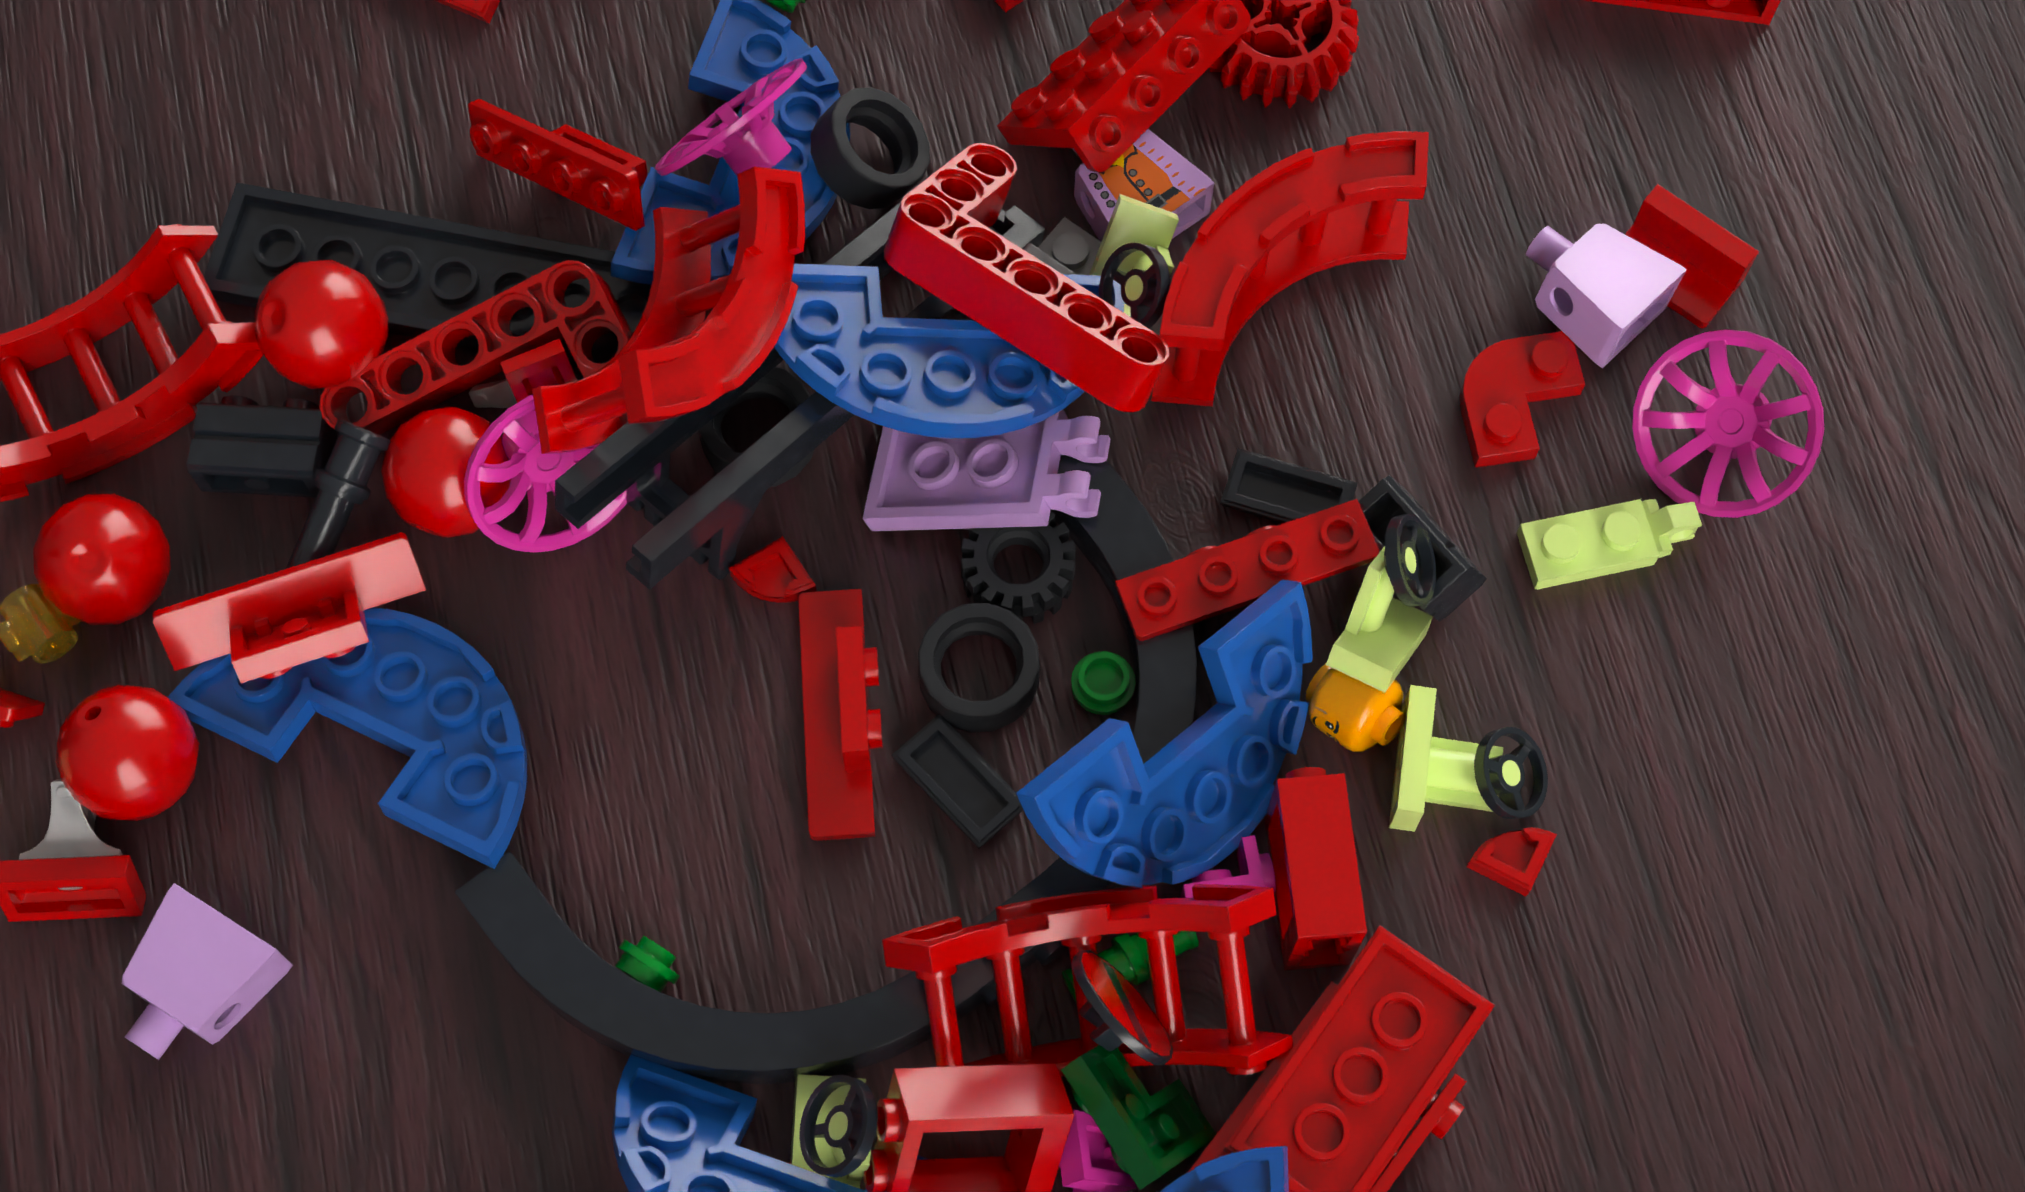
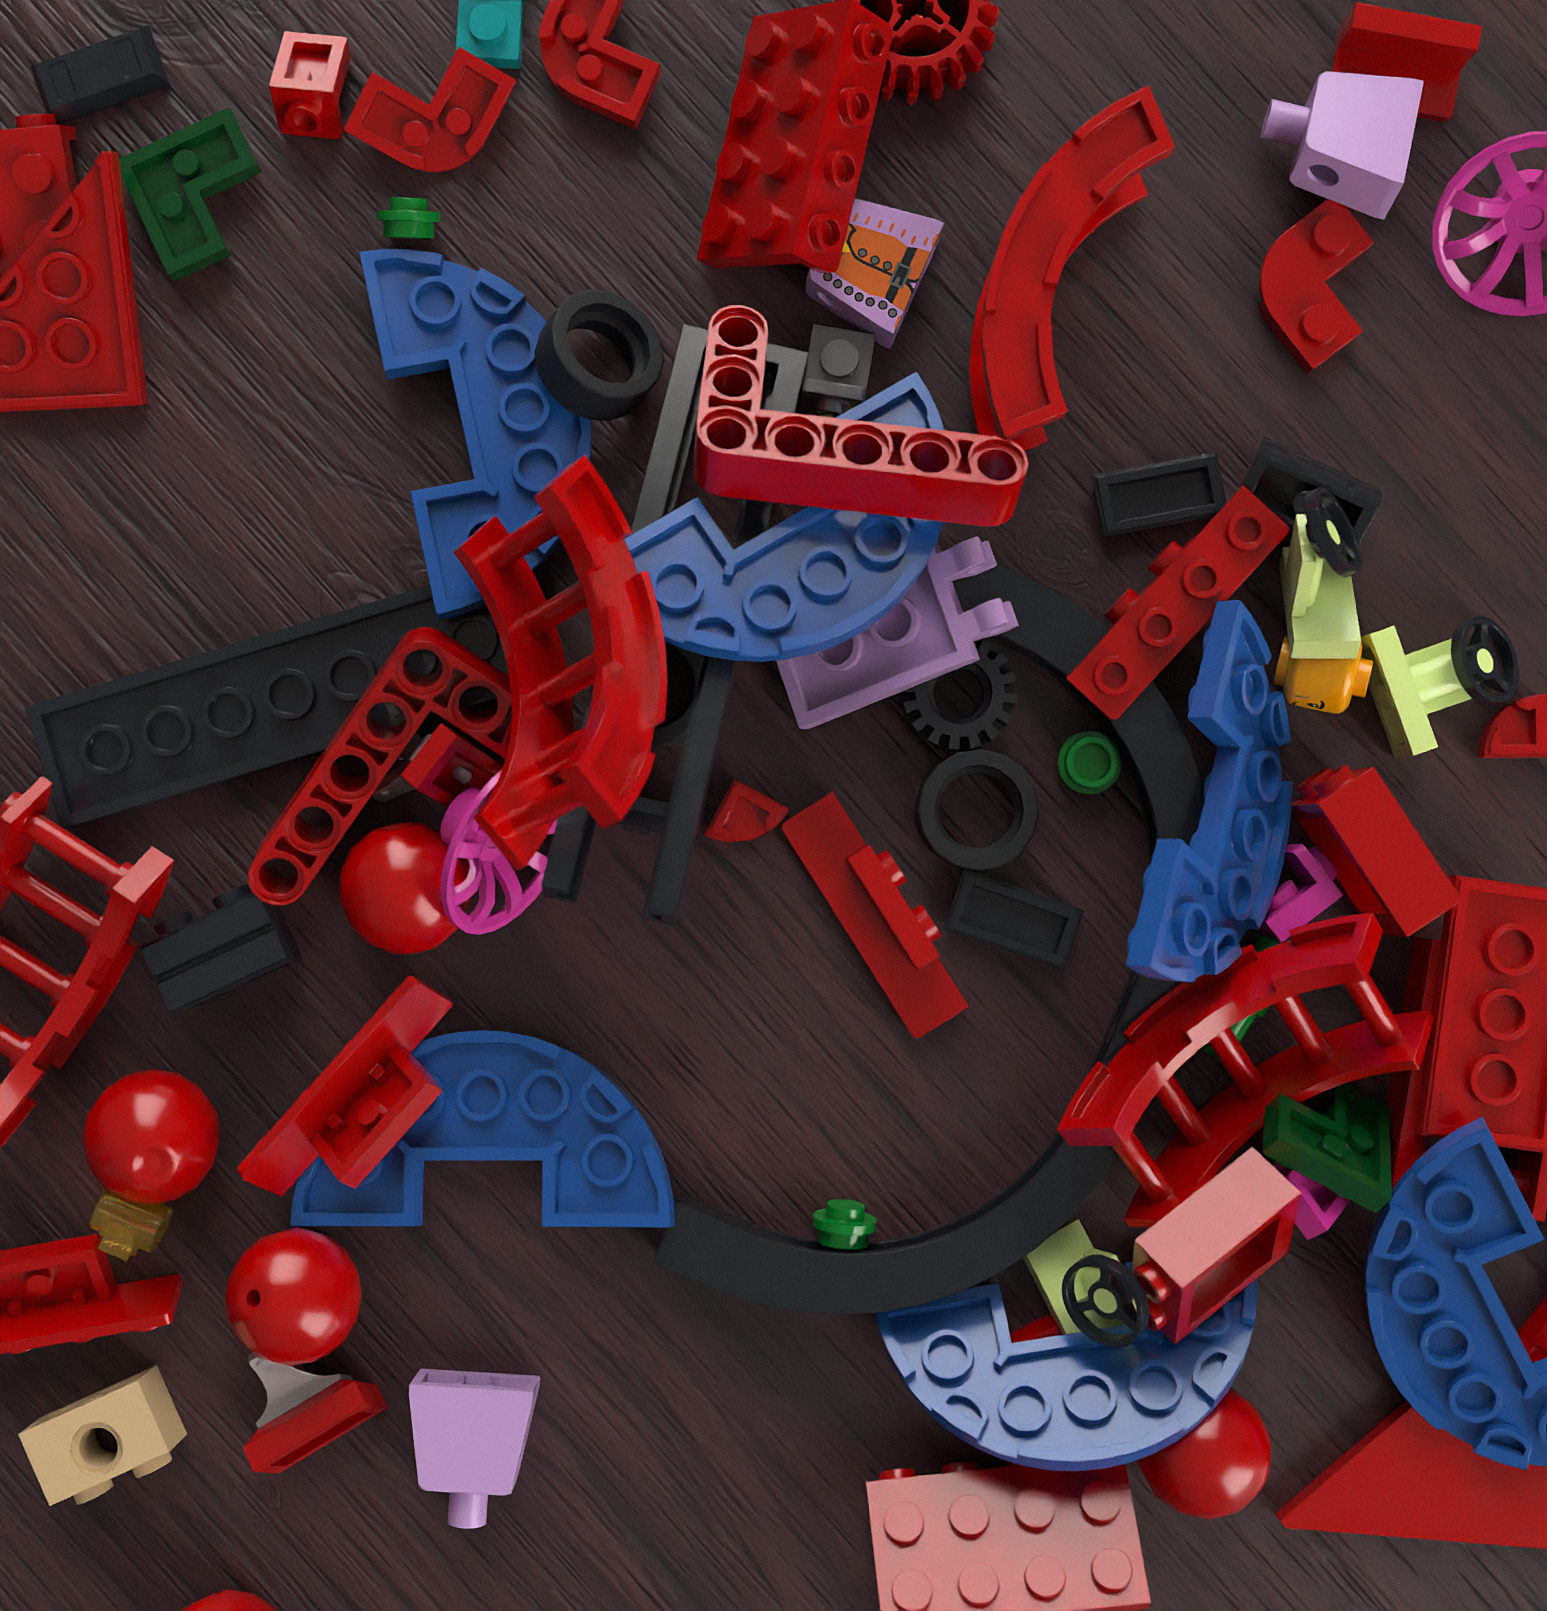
camera: 30 degrees left, 20 degrees up
(320, 323) = (208, 820): red piece -> none
(340, 487) = (321, 959): black pin -> none
(562, 162) = (328, 522): red bracket -> none
(742, 140) = (495, 421): dark pink wheel -> none
(1119, 1010) = (1285, 1074): piece -> none
(1137, 258) = (914, 340): piece -> none
(1603, 540) = (1457, 390): yellowish green hinge -> none

